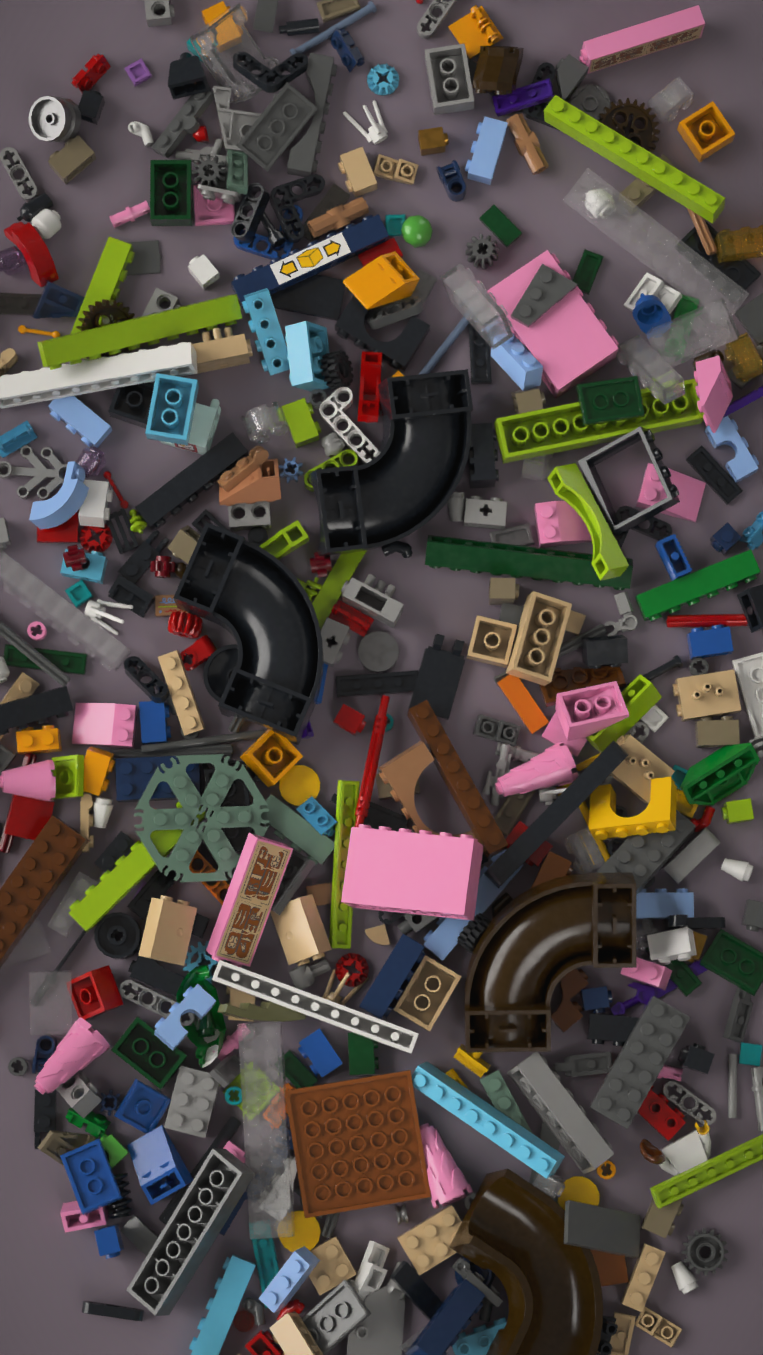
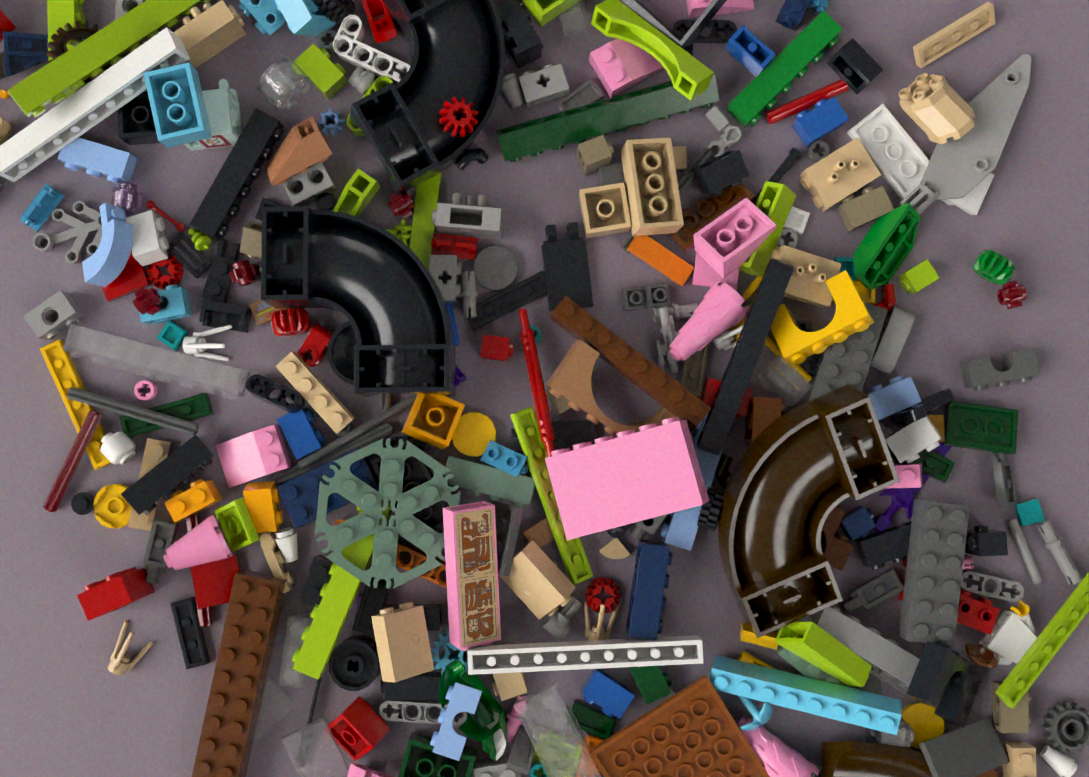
camera: 25 degrees left, 5 degrees up
(243, 468) = (282, 139): medium nougat hinge -> none
(266, 1012) = (526, 686): olive slope -> none
(346, 664) = (469, 294): none -> light grey pin
(395, 507) = (449, 117): none -> red gear
(427, 993) = (690, 590): tan brick -> none
(442, 1125) = (759, 717): none -> medium azure plant
(518, 1090) = (824, 652): none -> lime slope
(627, 1169) = (945, 683): none -> black arch
(738, 869) = (942, 334): white cone -> none

